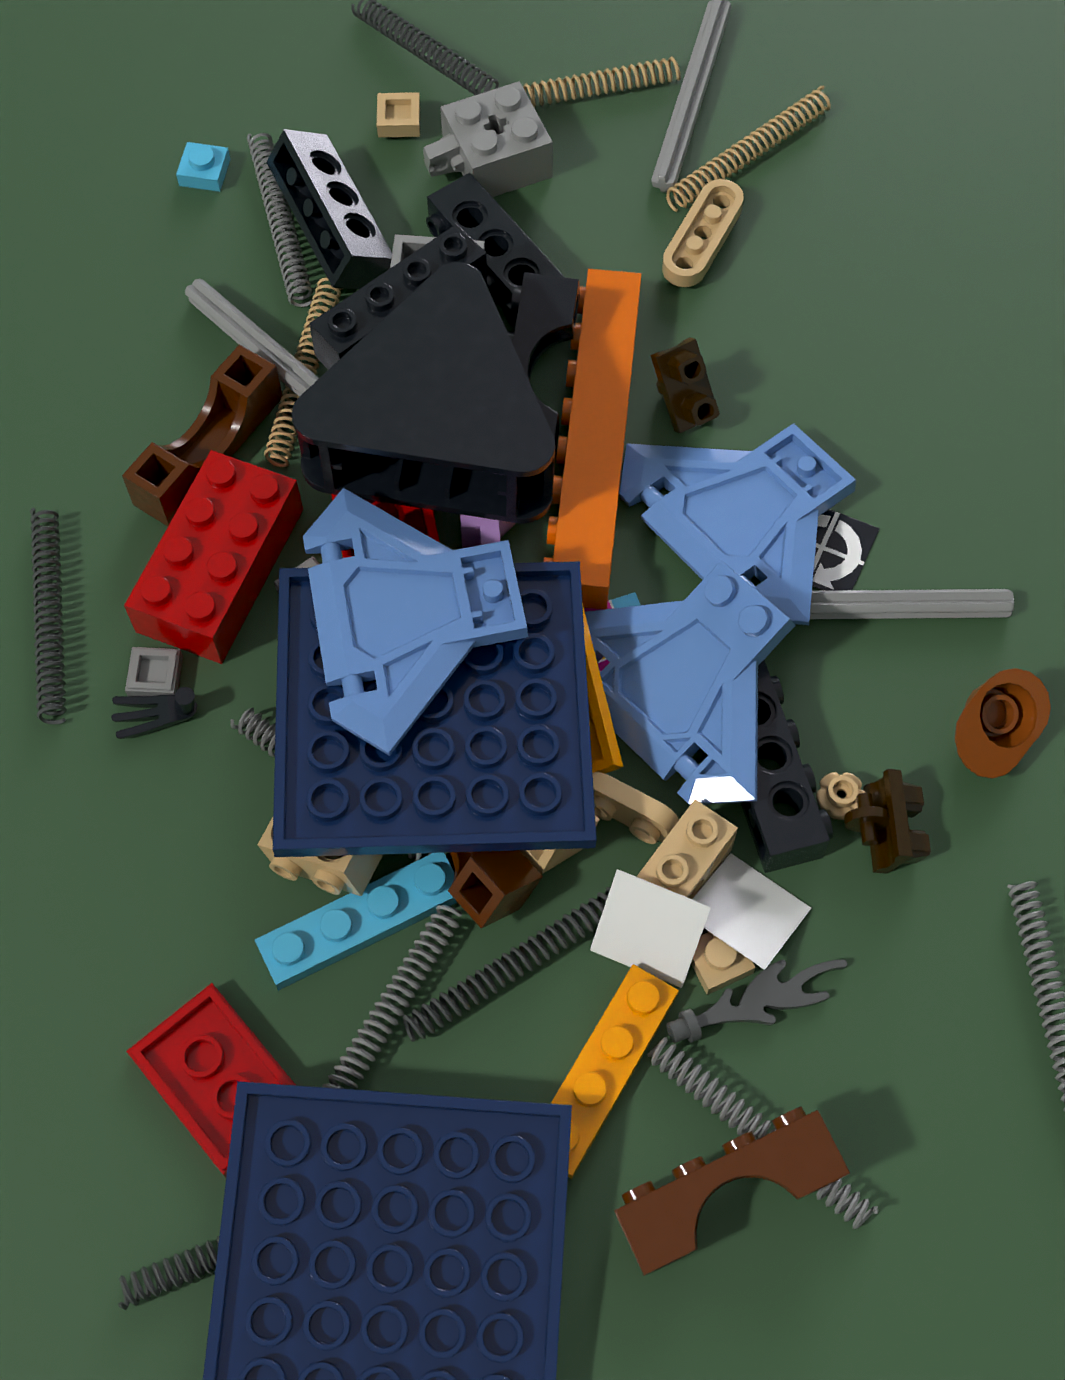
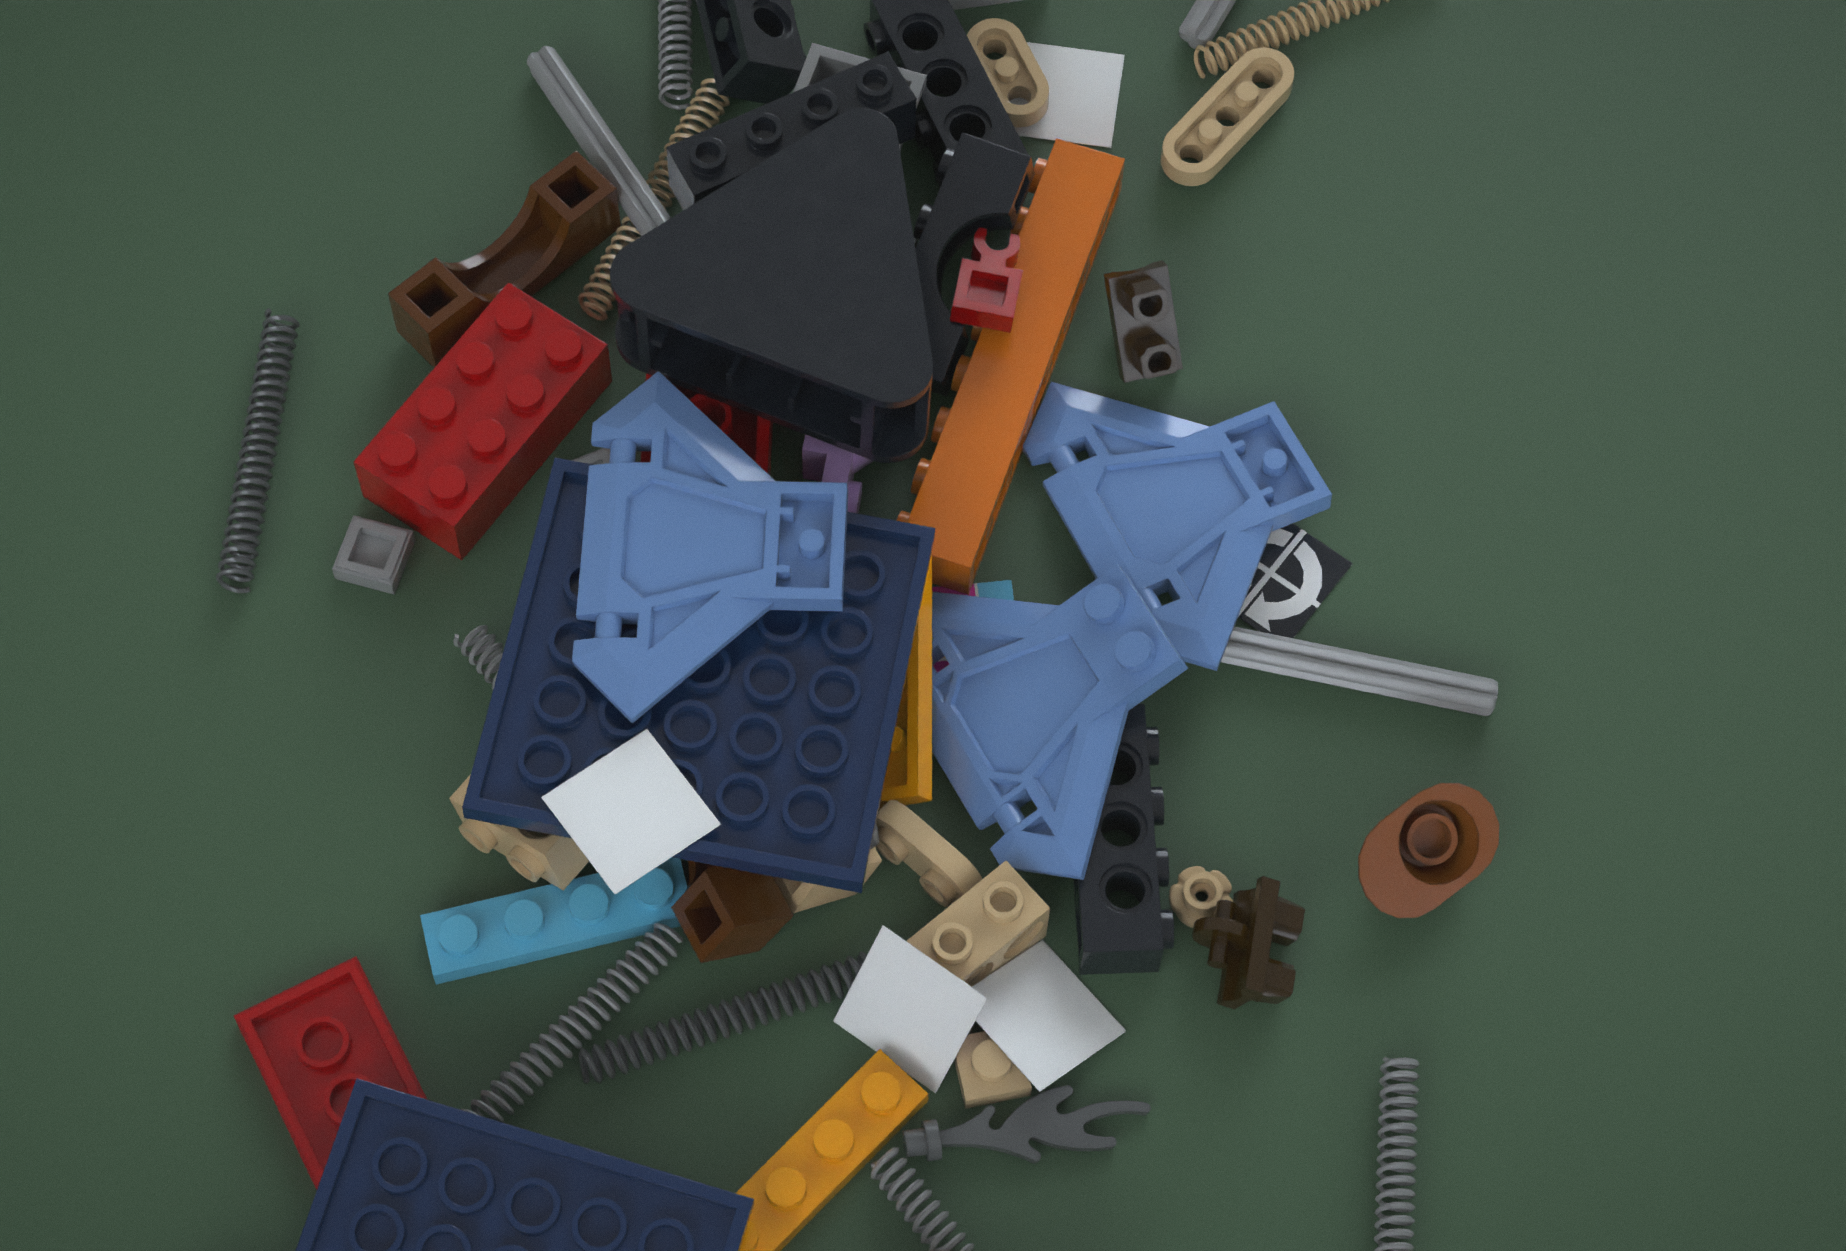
camera: 10 degrees right, 0 degrees up
(164, 711) = (377, 604): black piece -> none
(404, 824) = (630, 811): none -> white sticker
(543, 229) = (1015, 73): none -> tan plate
(569, 380) = (988, 285): none -> plate
(581, 239) = (1081, 95): none -> white sticker

